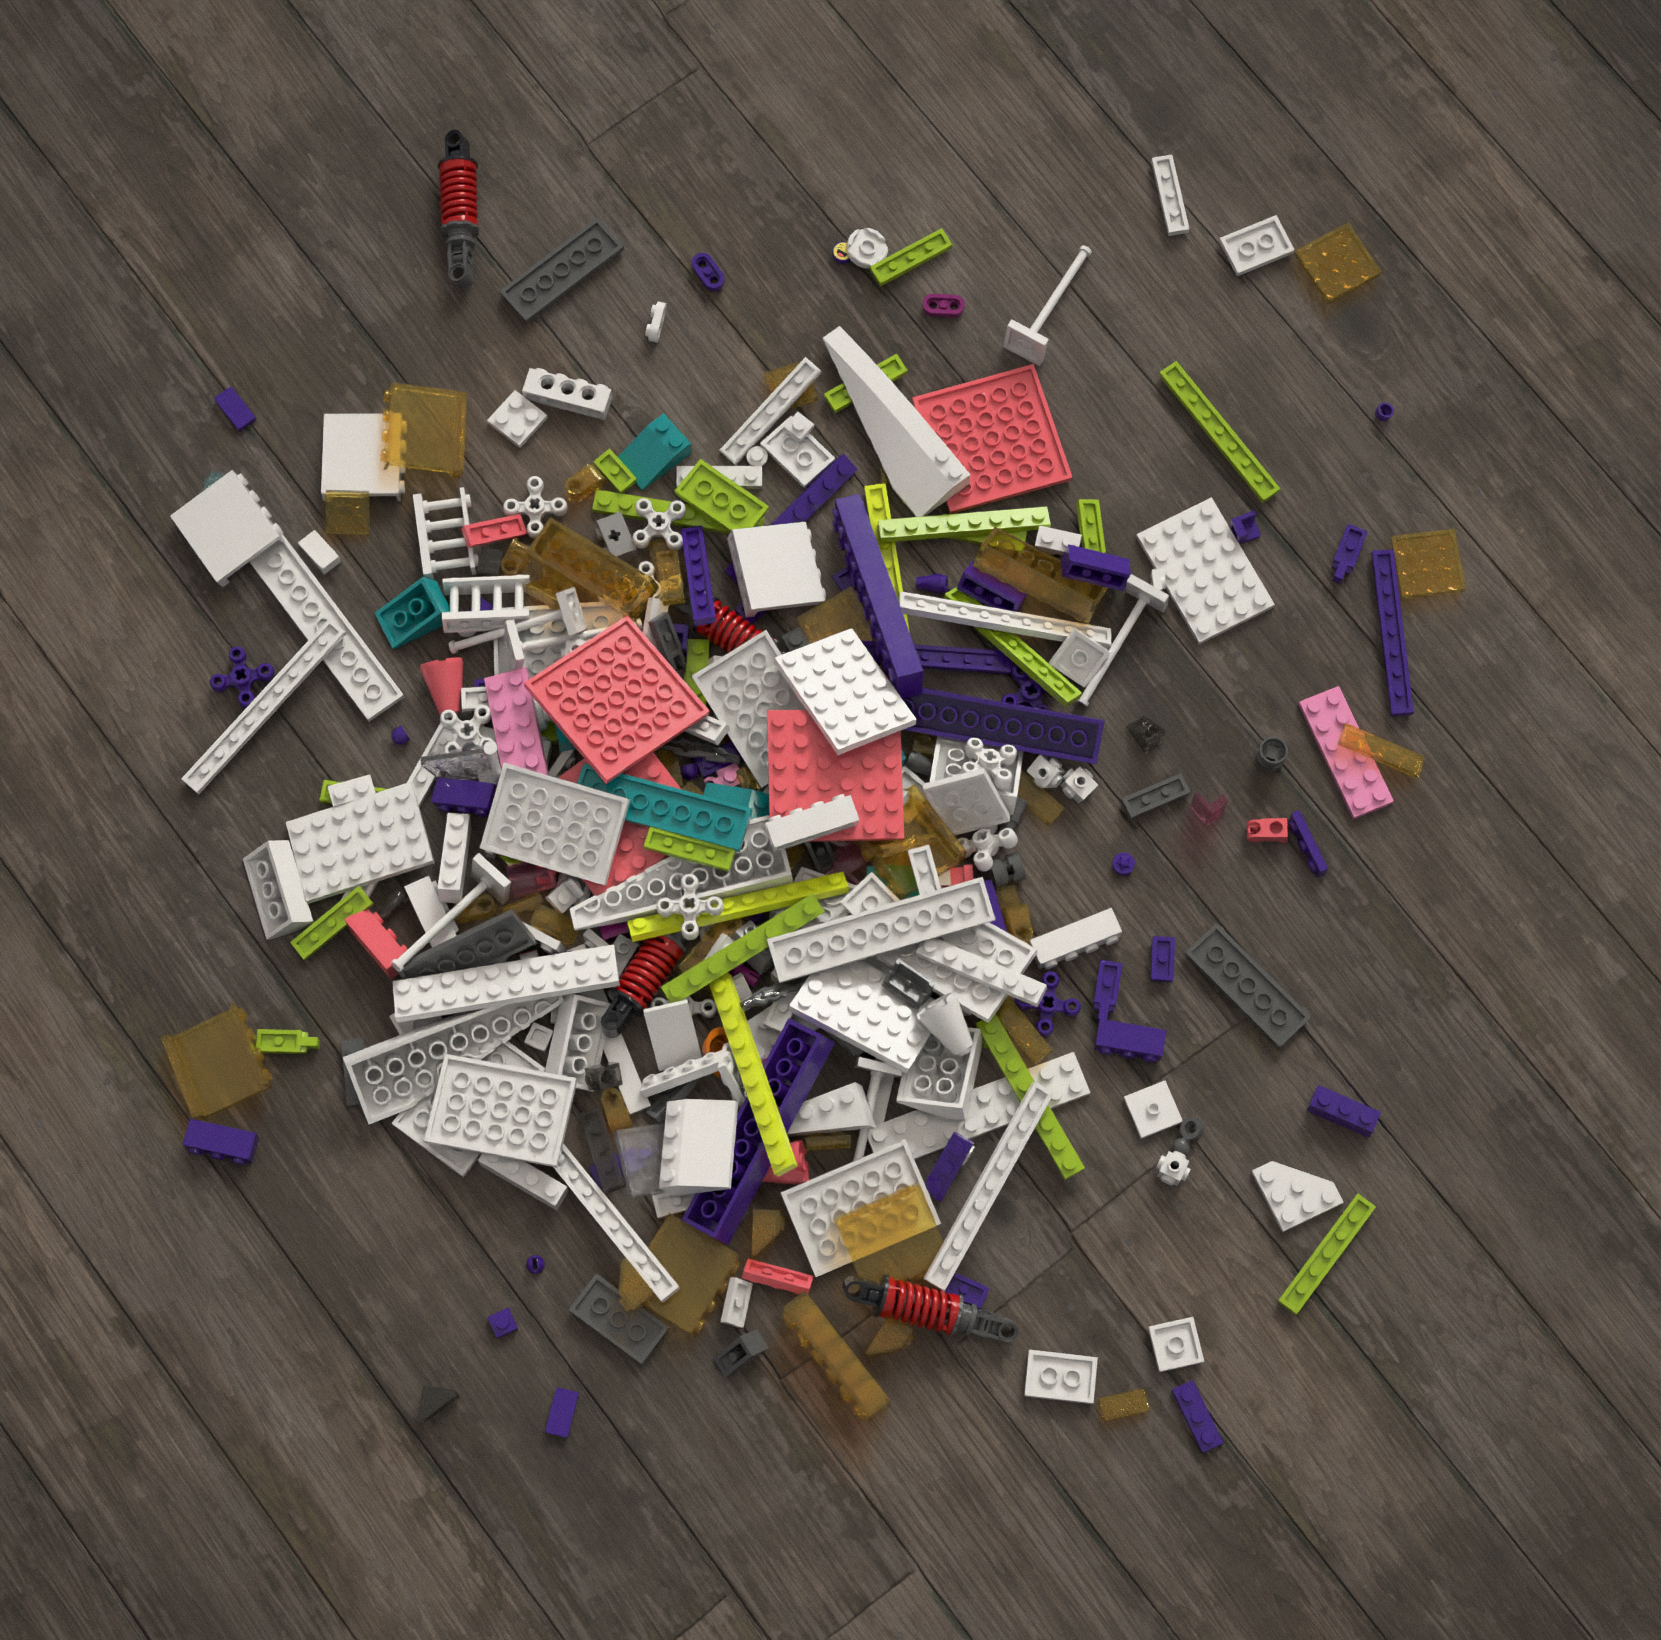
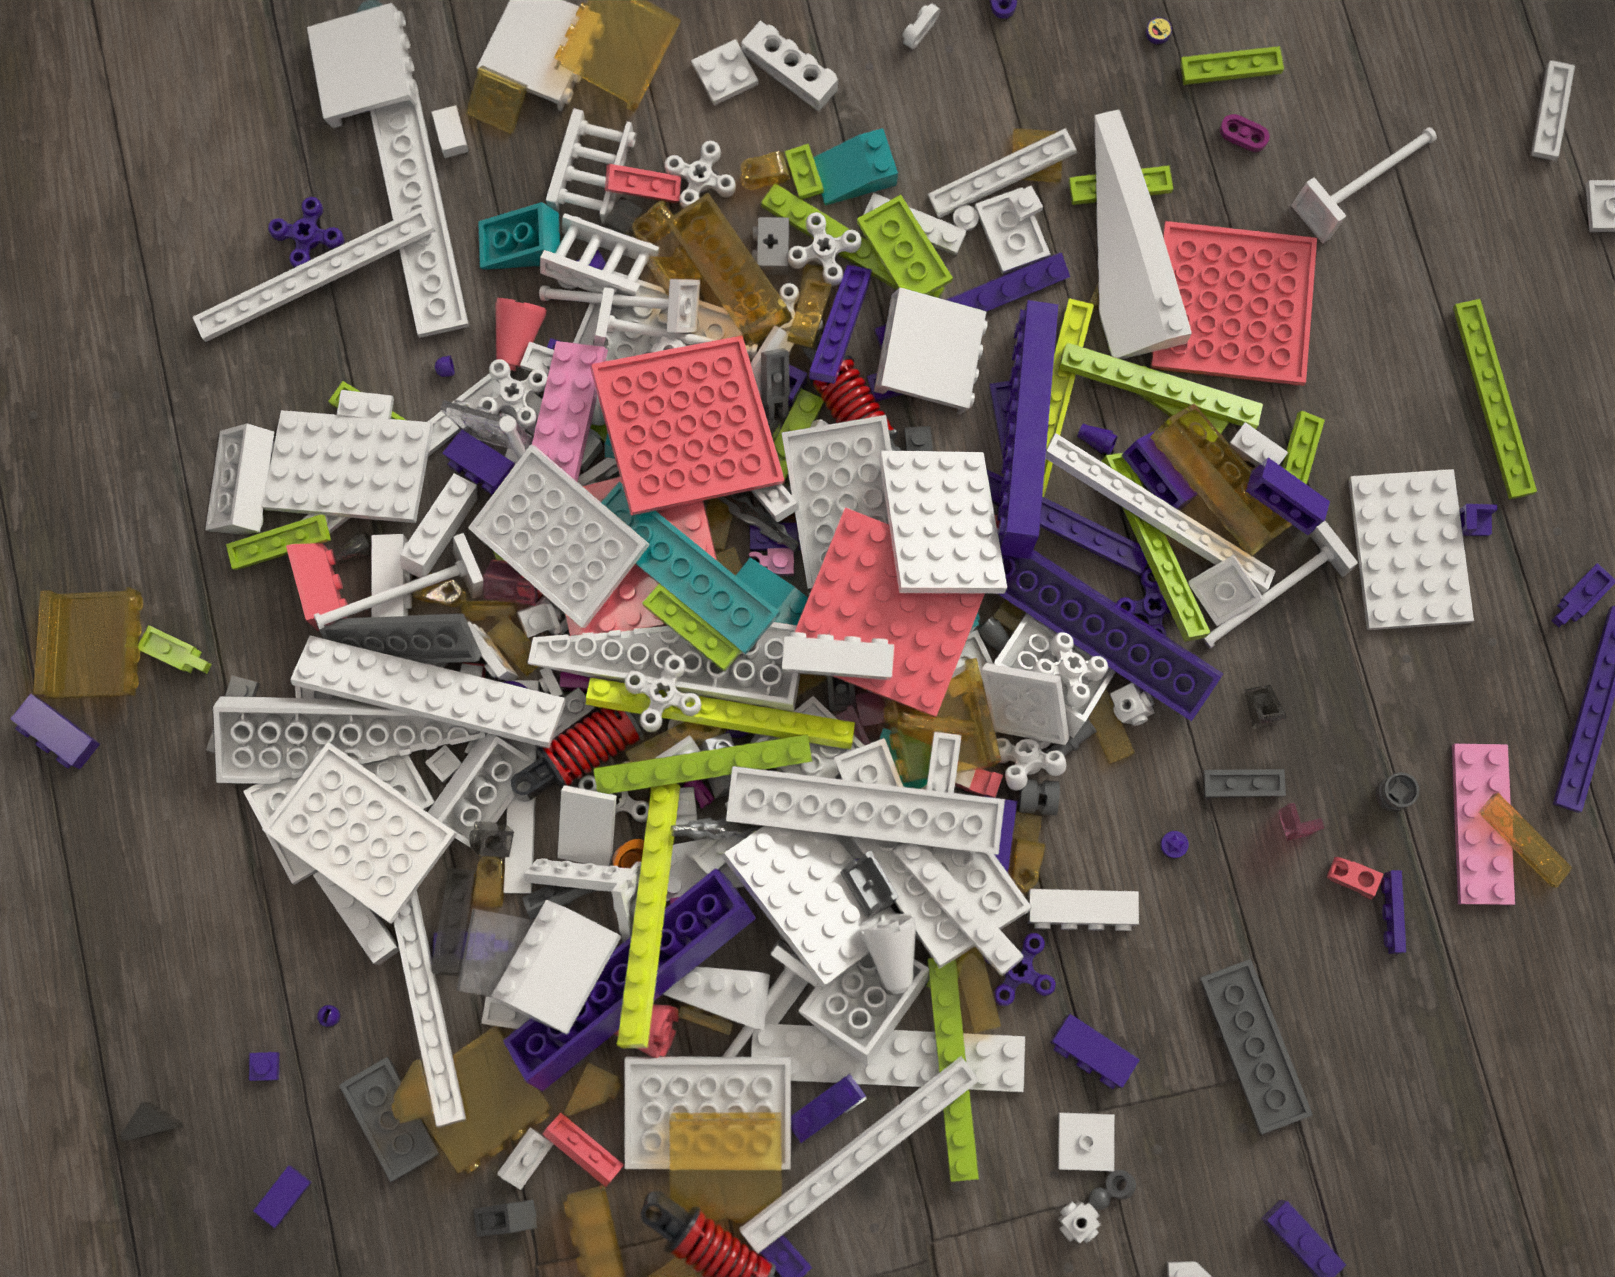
camera: 25 degrees right, 5 degrees up
(689, 771) = (738, 537): dark purple hinge -> none
(747, 779) = (796, 573): clear yellow plate -> none
(834, 617) = (972, 431): clear yellow plate -> none
(866, 247) = (1187, 35): white tile -> none
(1078, 784) = (1170, 734): white brick -> none
(1107, 988) = (1094, 980): dark purple hinge -> none
(1157, 580) = (1351, 538): white plate -> none
(1162, 959) = (1171, 973): dark purple plate -> none

